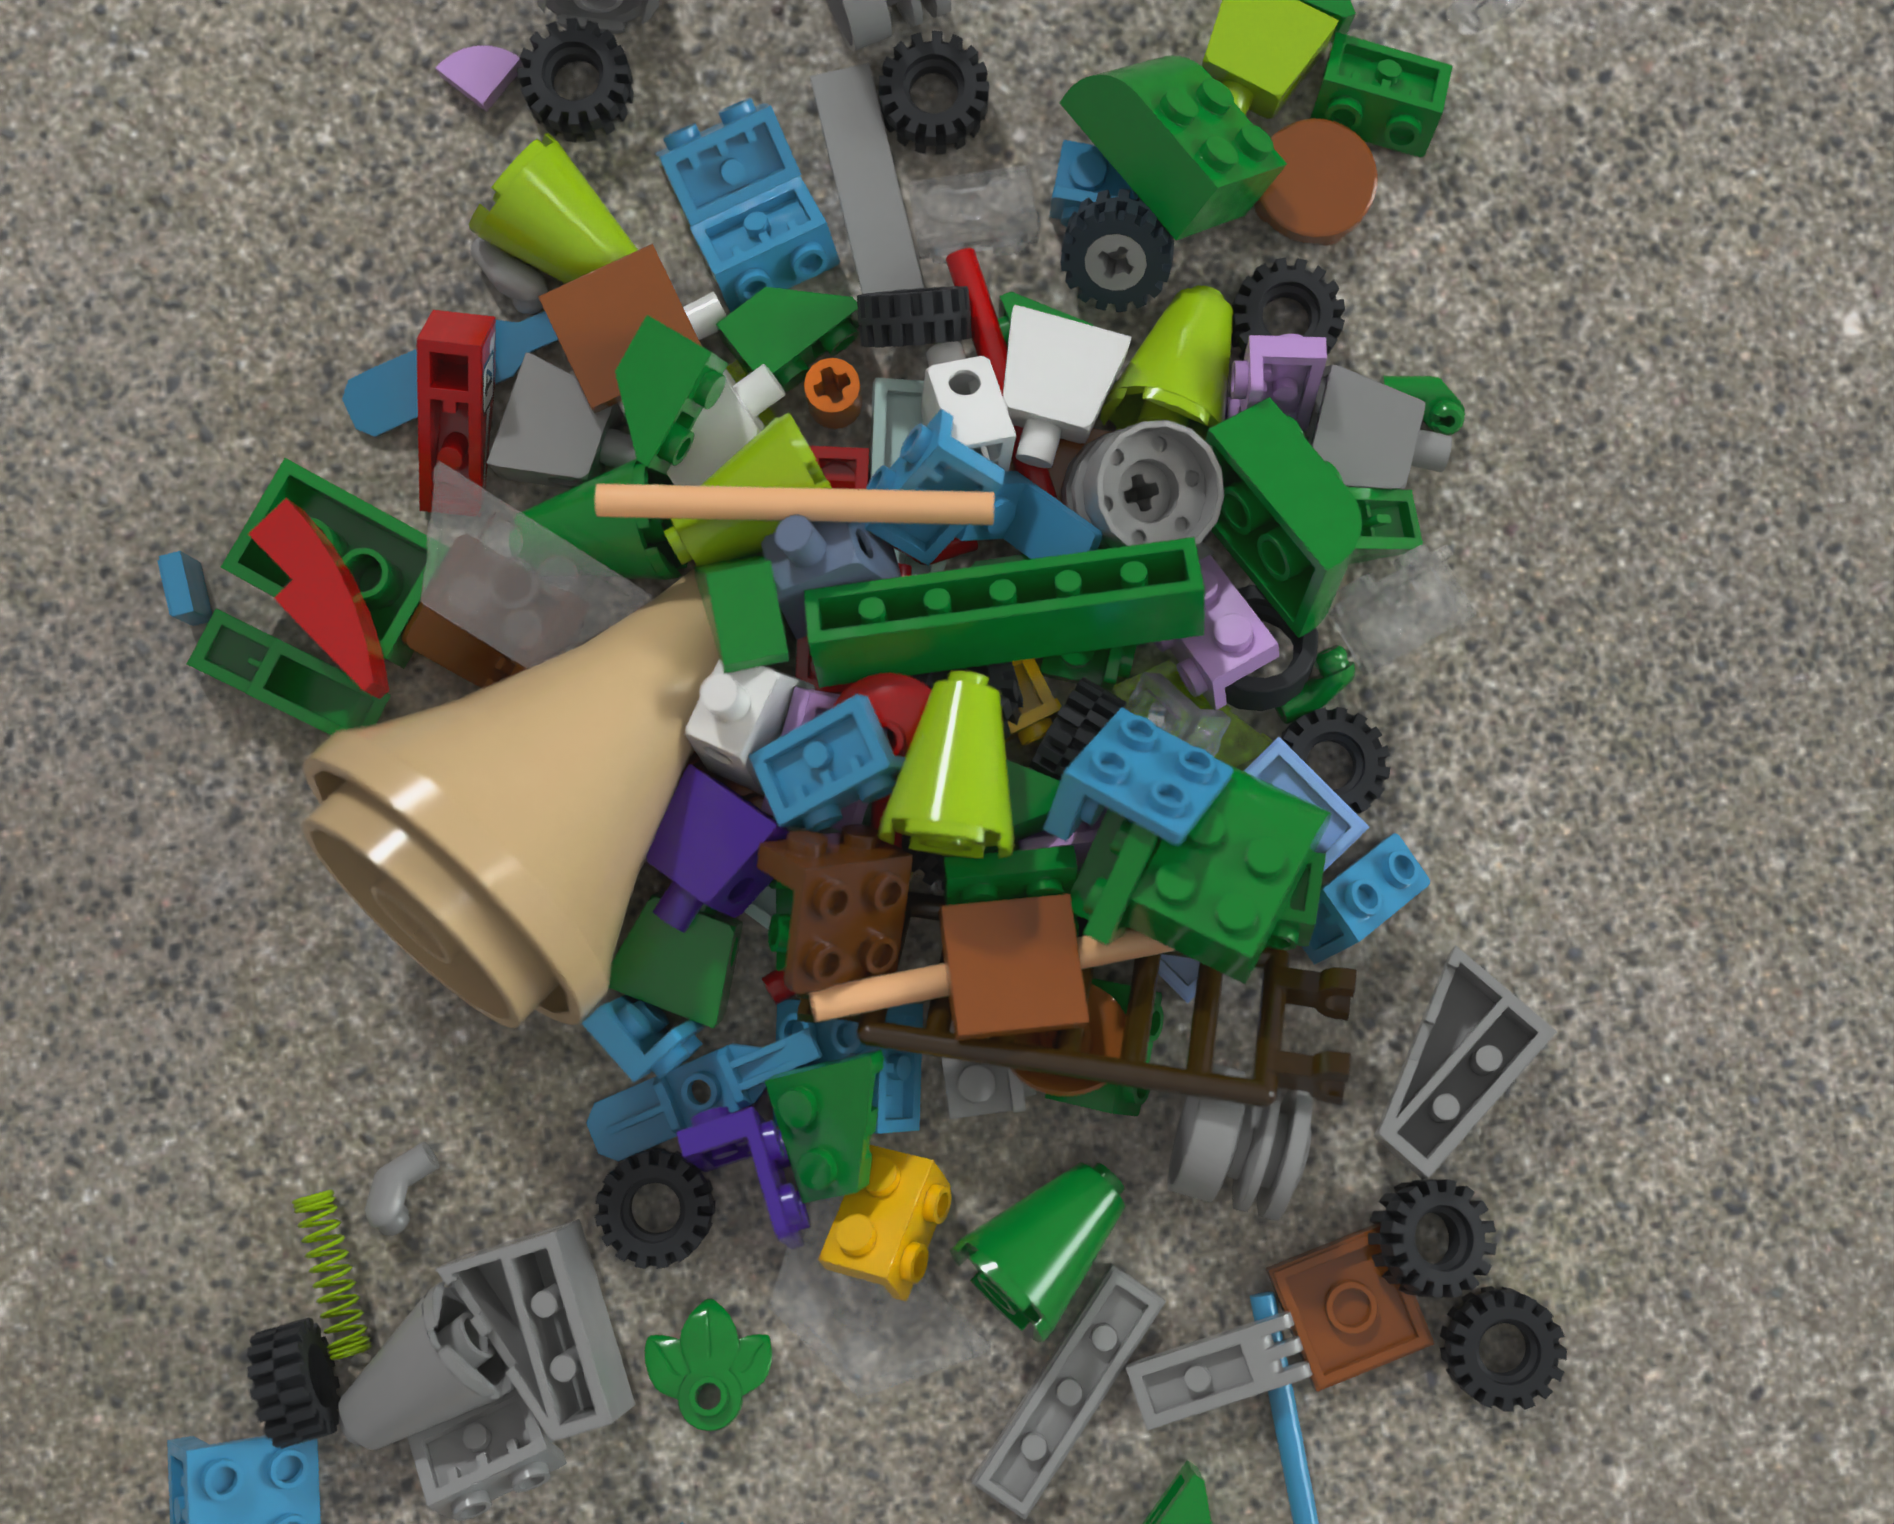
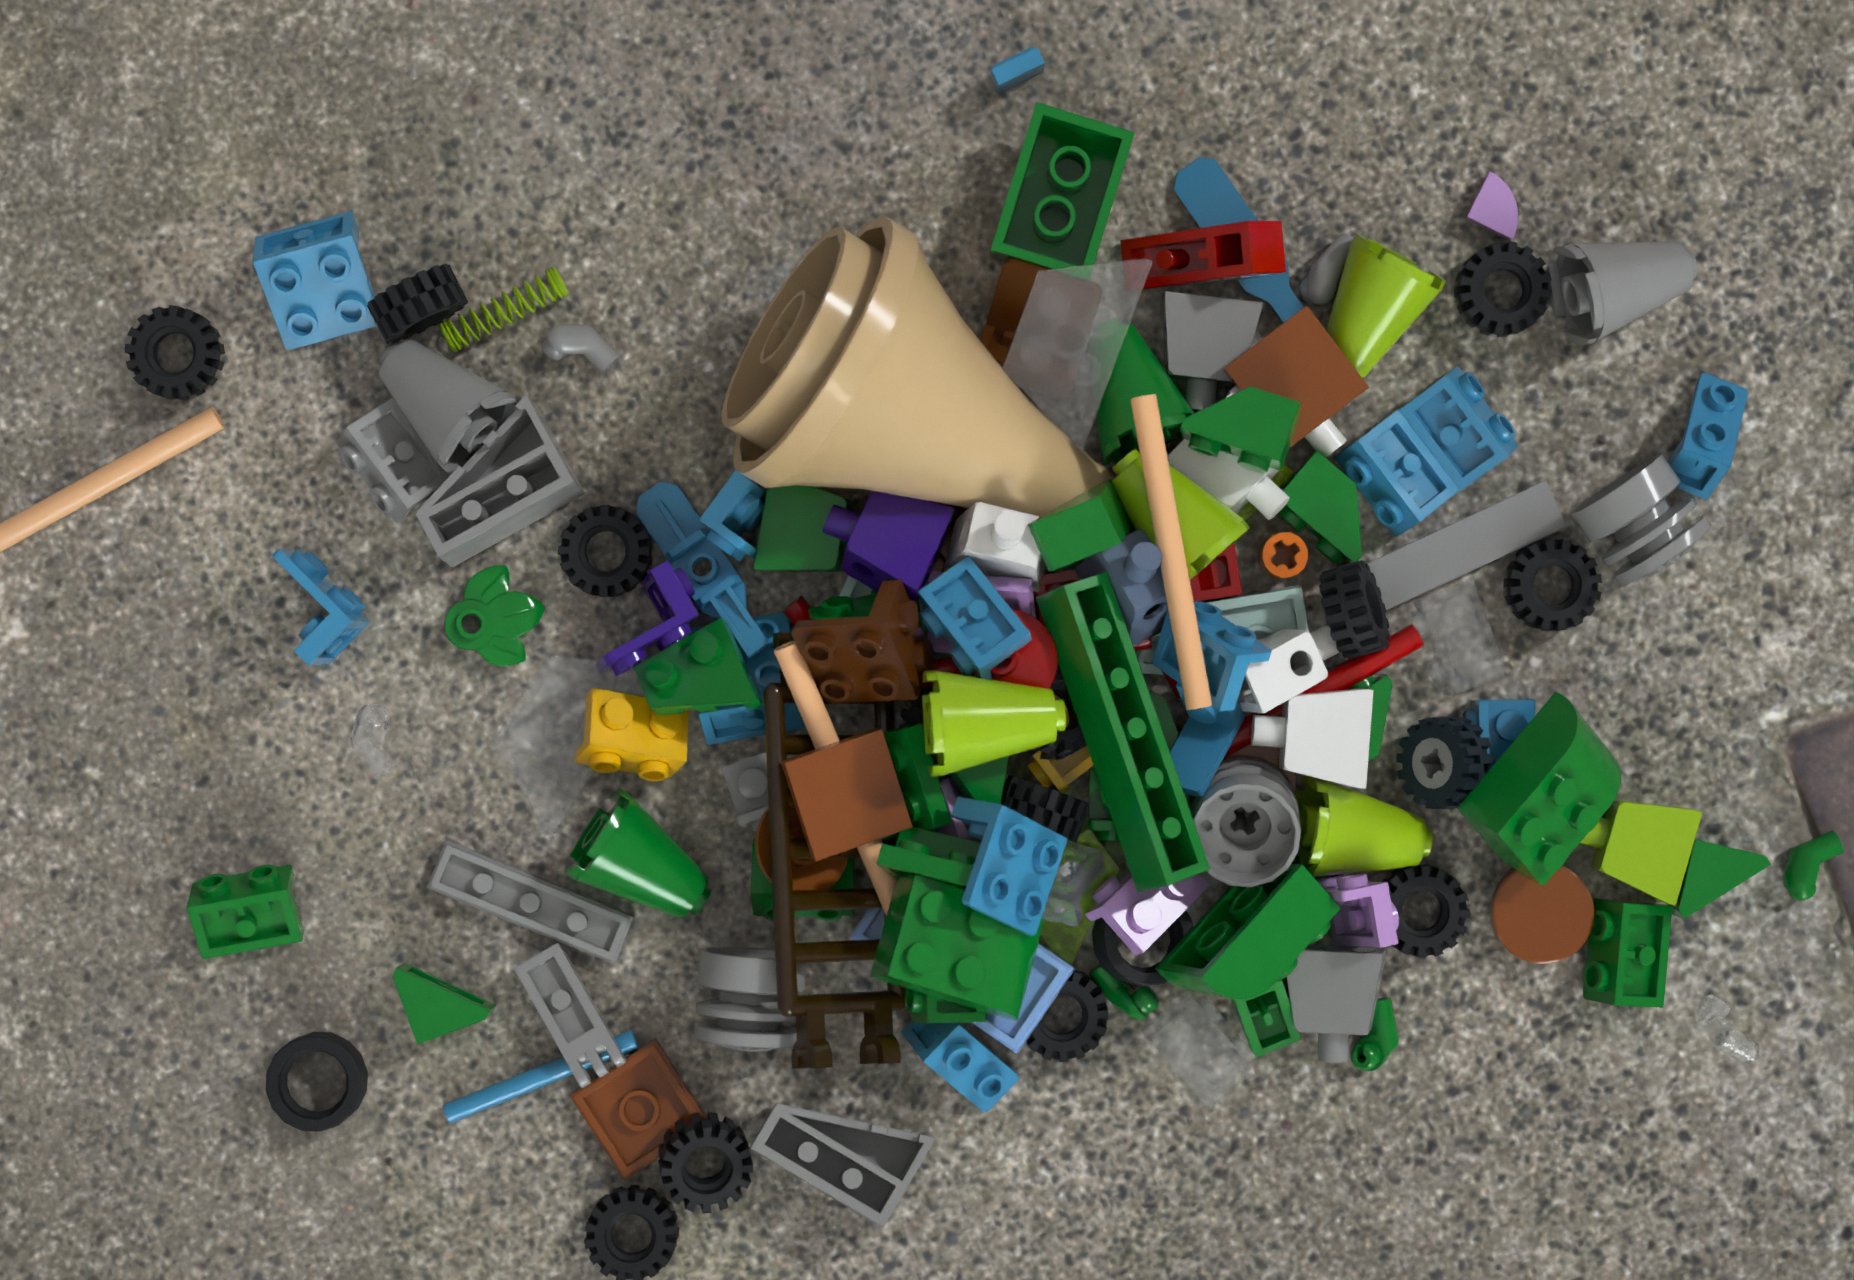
camera: 80 degrees right, 5 degrees up
(283, 676) = (961, 167): green slope -> none
(323, 595) = (1028, 193): red slope -> none

